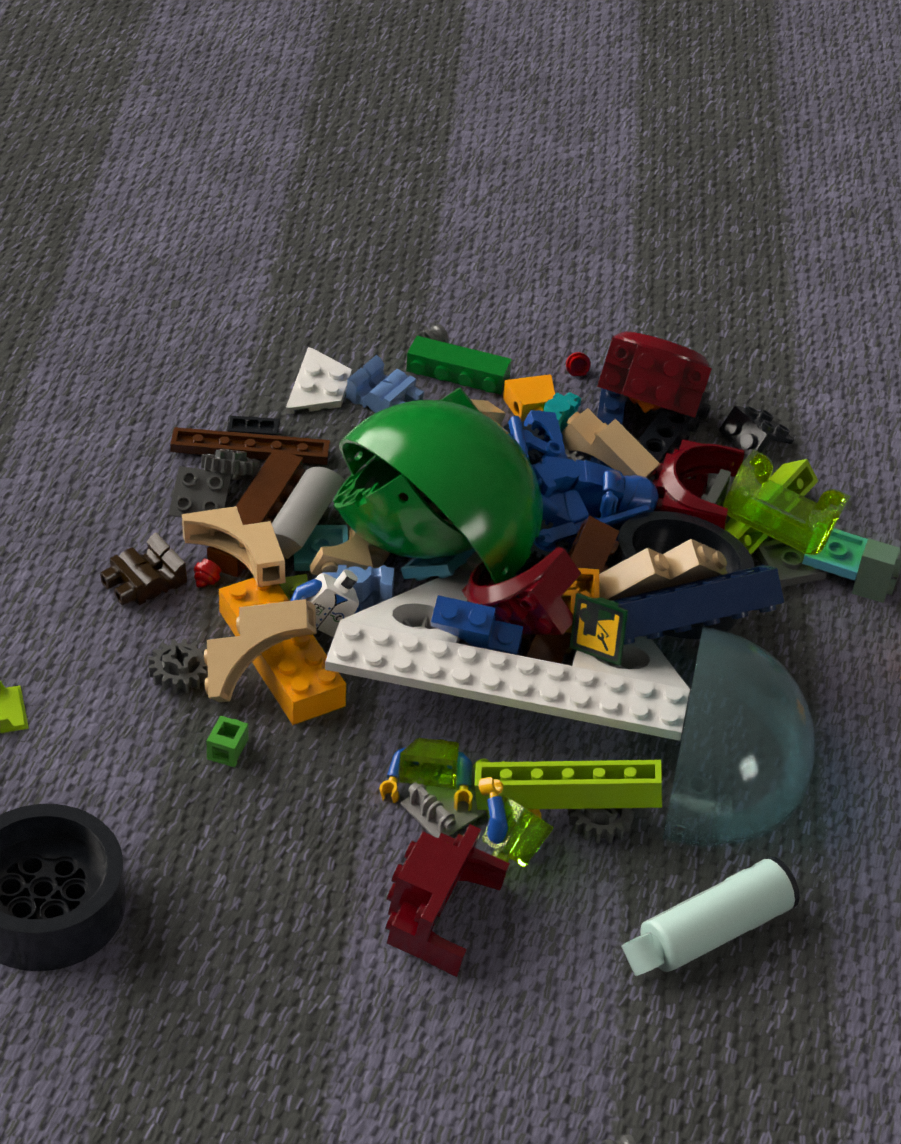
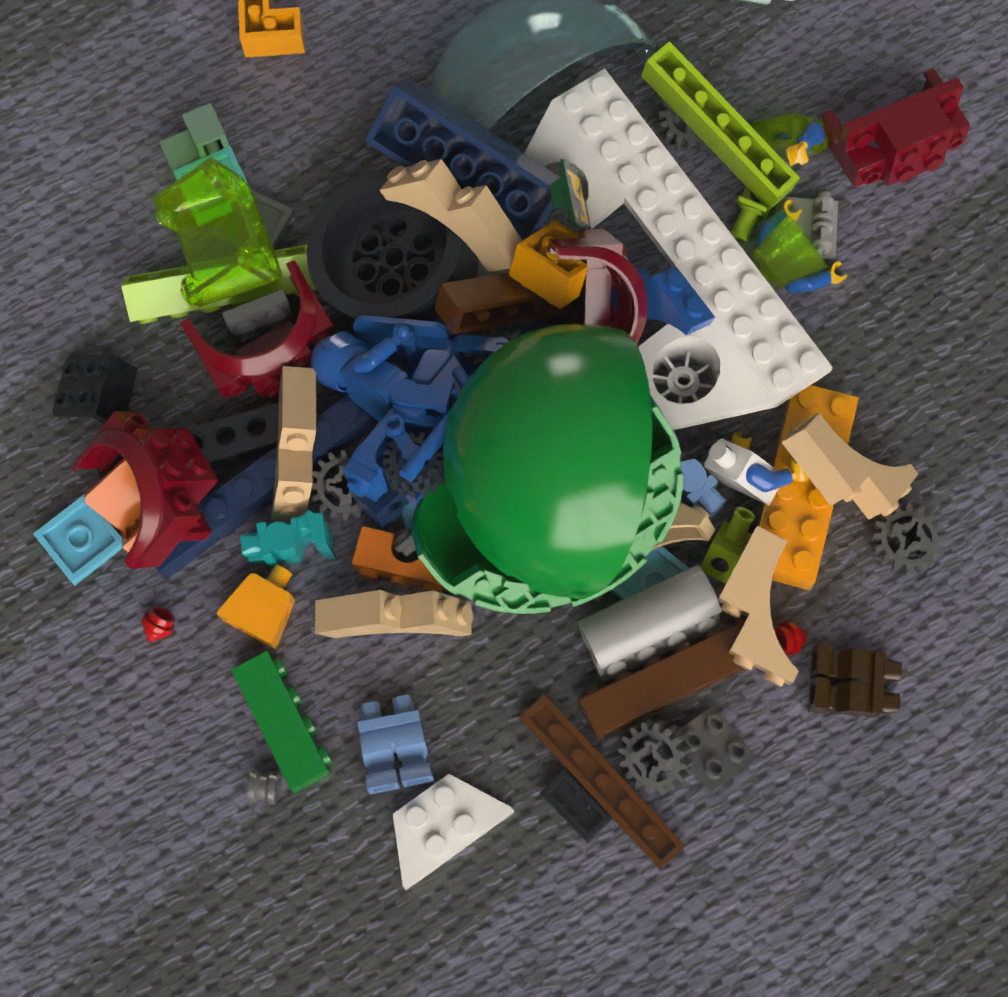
camera: 130 degrees left, 30 degrees up
(227, 741) = (940, 414): bright green brick -> none

